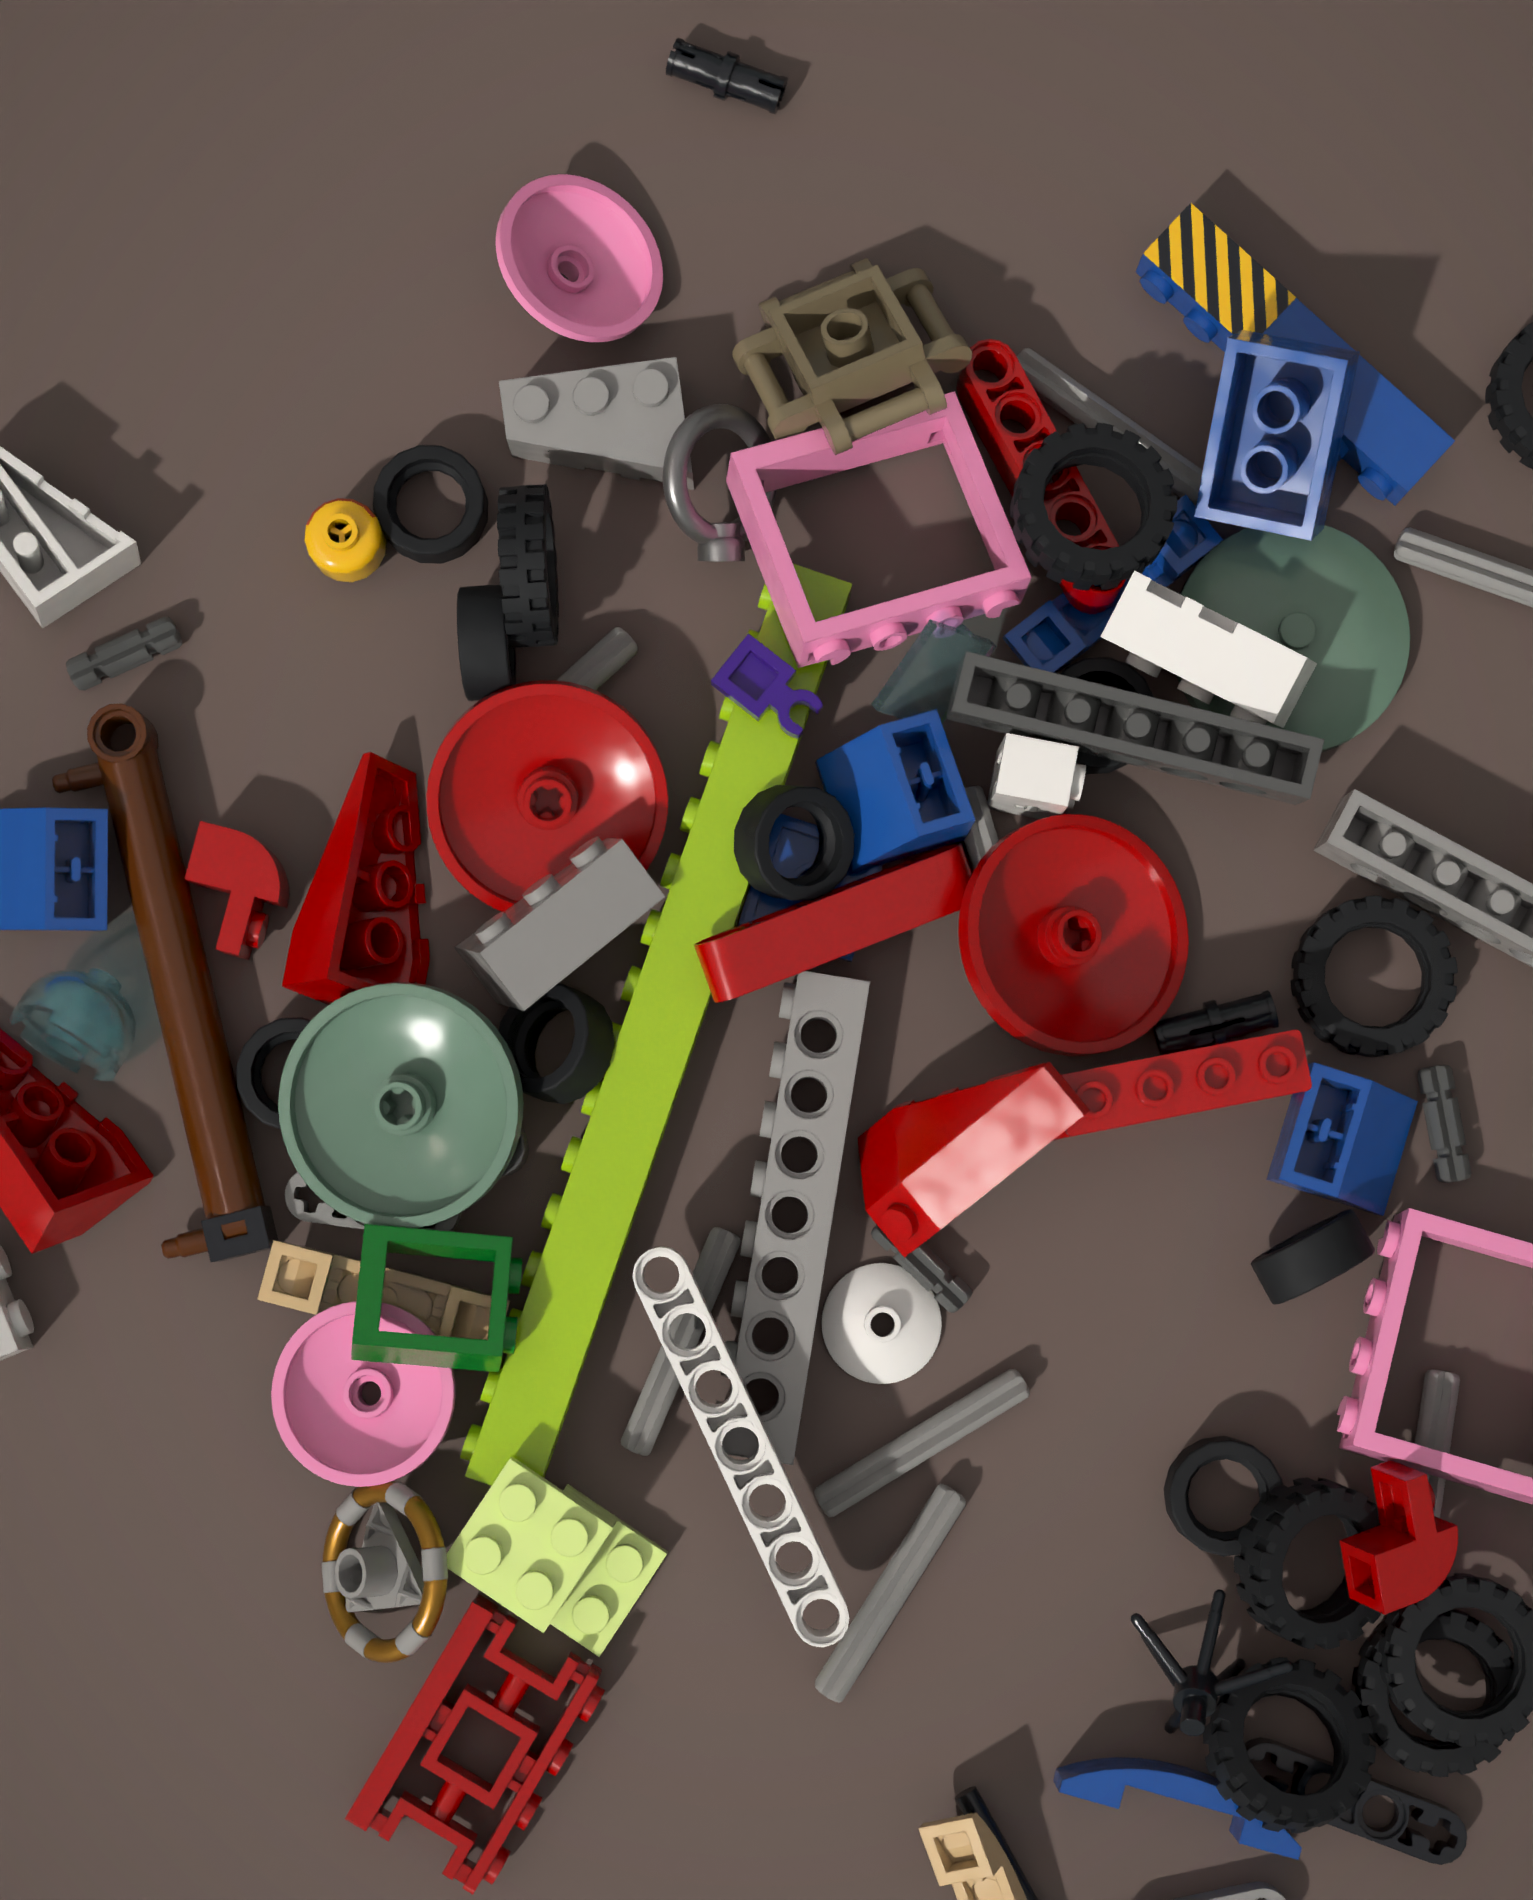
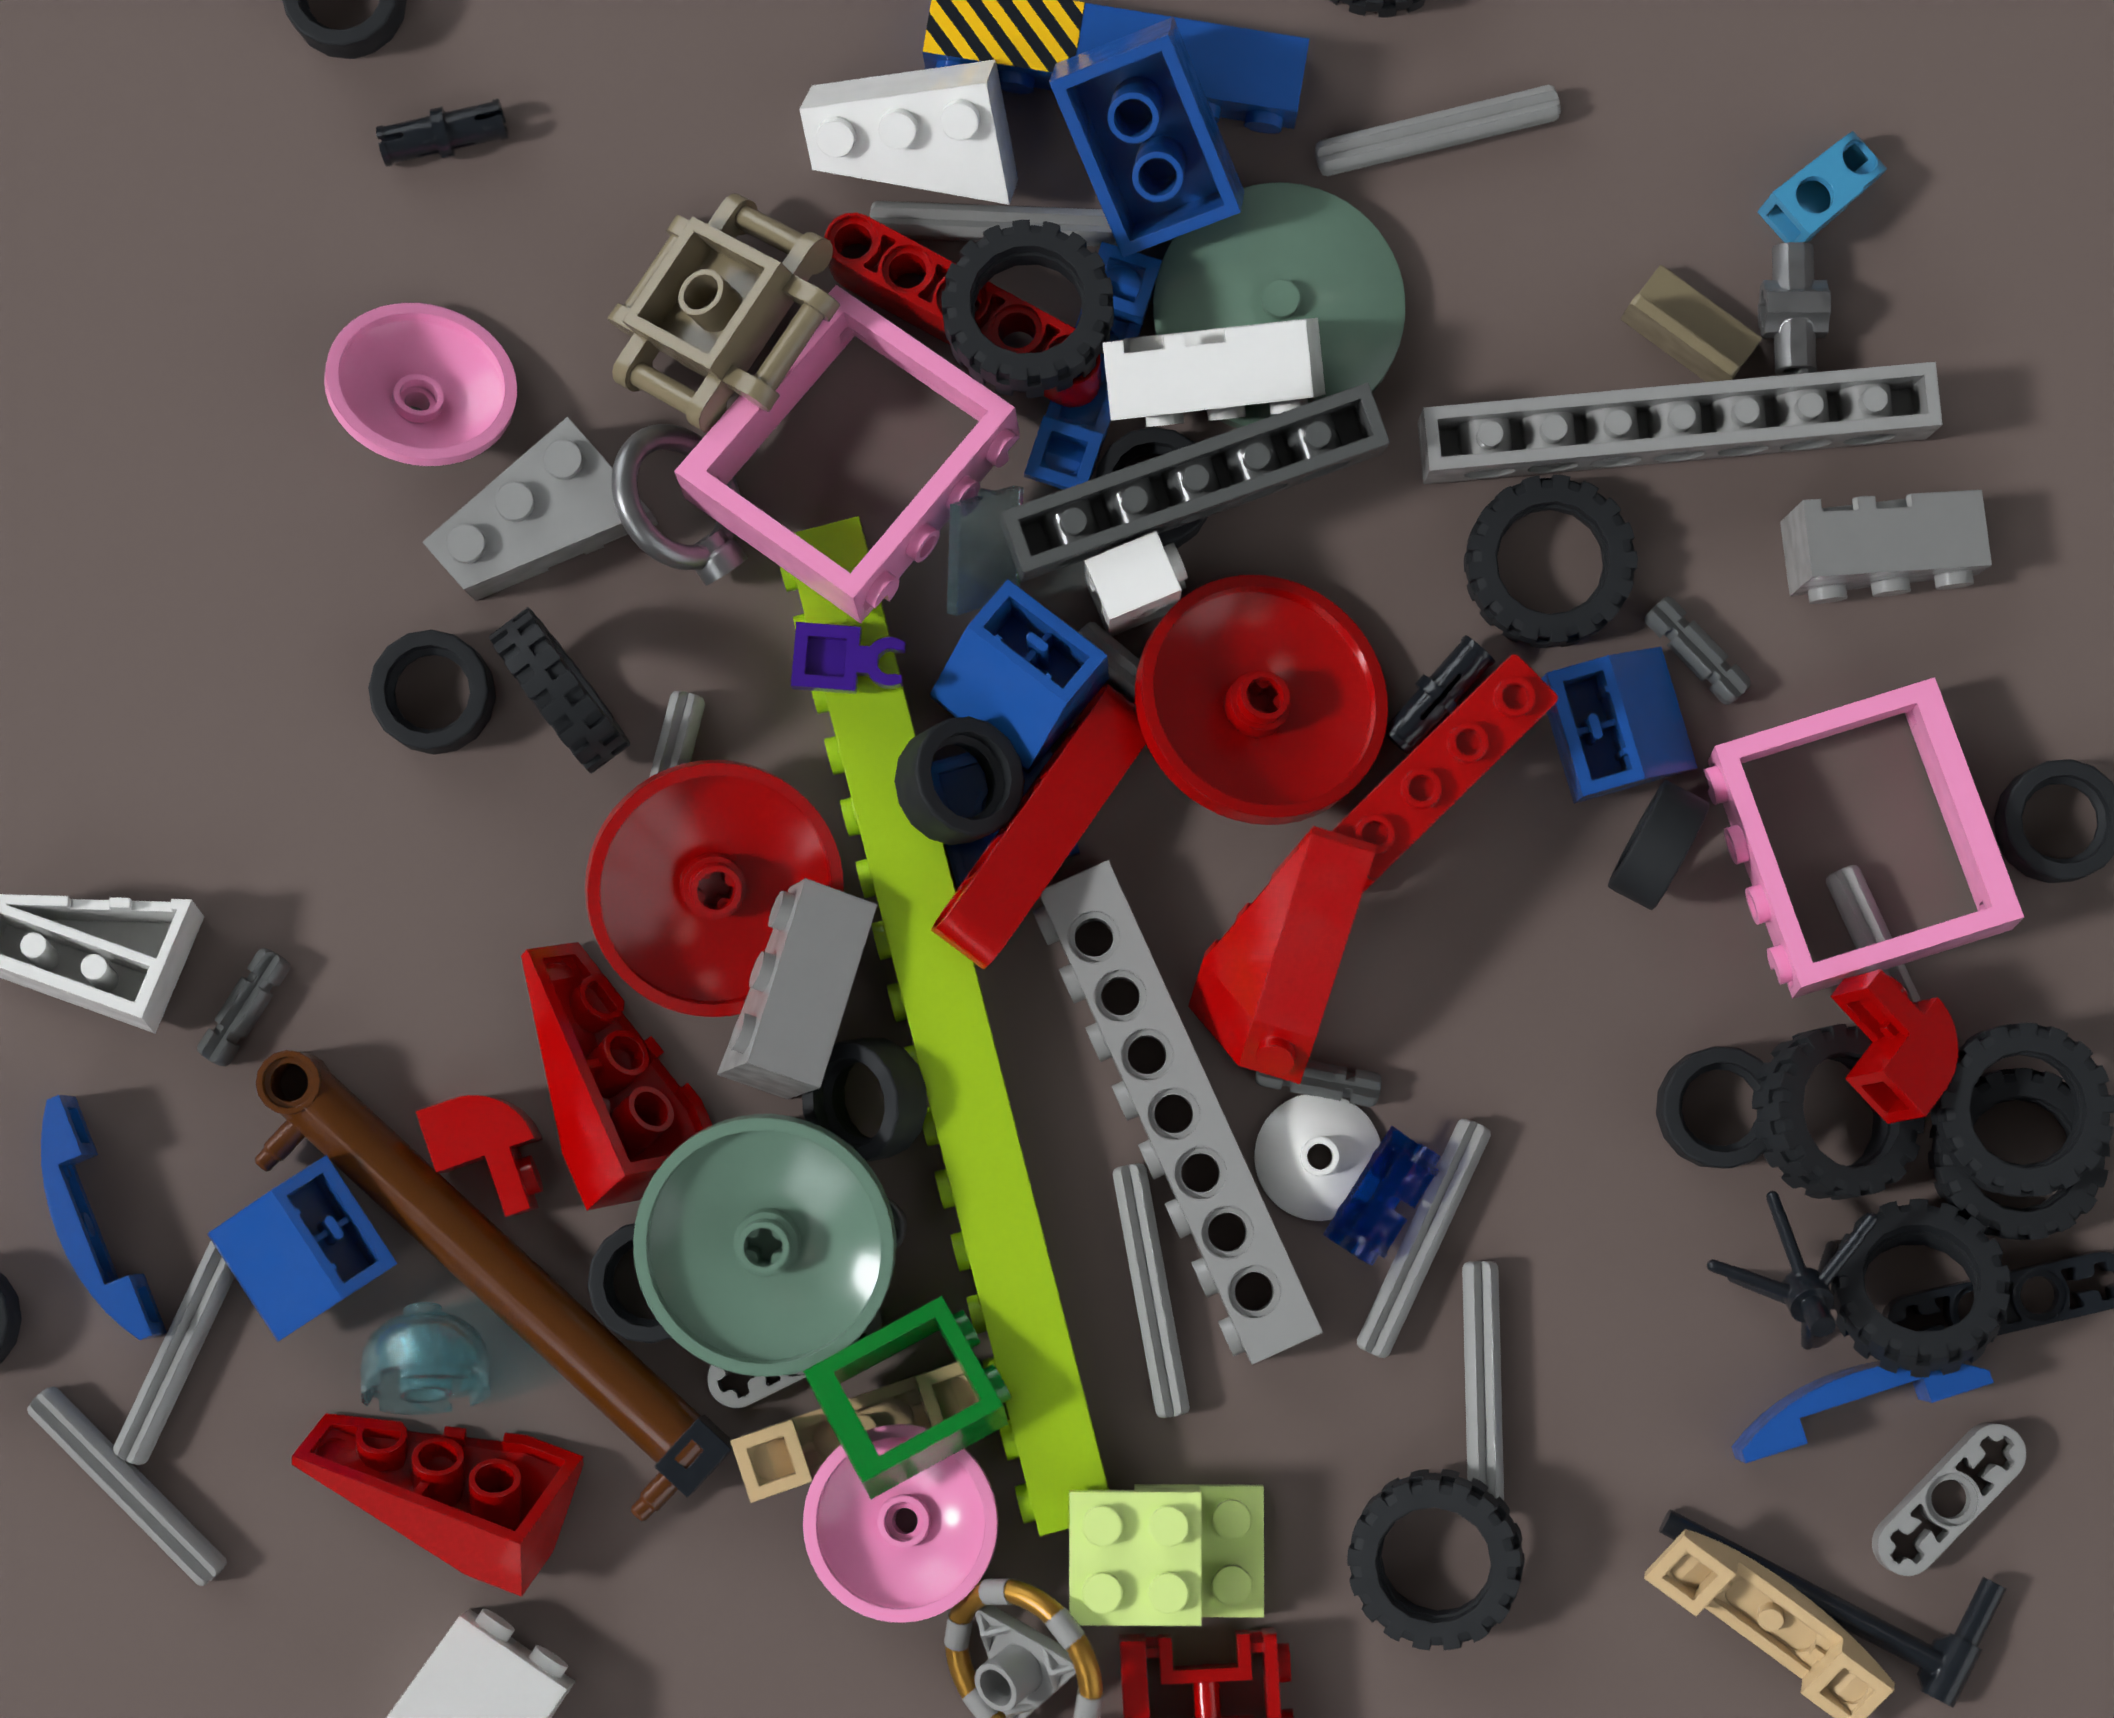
camera: 25 degrees left, 0 degrees up
(350, 558) = (392, 789): yellow head -> none
(483, 646) = (564, 783): black tyre -> none
(720, 1747) = (1421, 1624): none -> black tyre
(742, 1476) = (1284, 1371): white beam -> none
(887, 1397) = (1395, 1173): none -> clear blue hinge
(1097, 312) = (916, 130): none -> white wedge

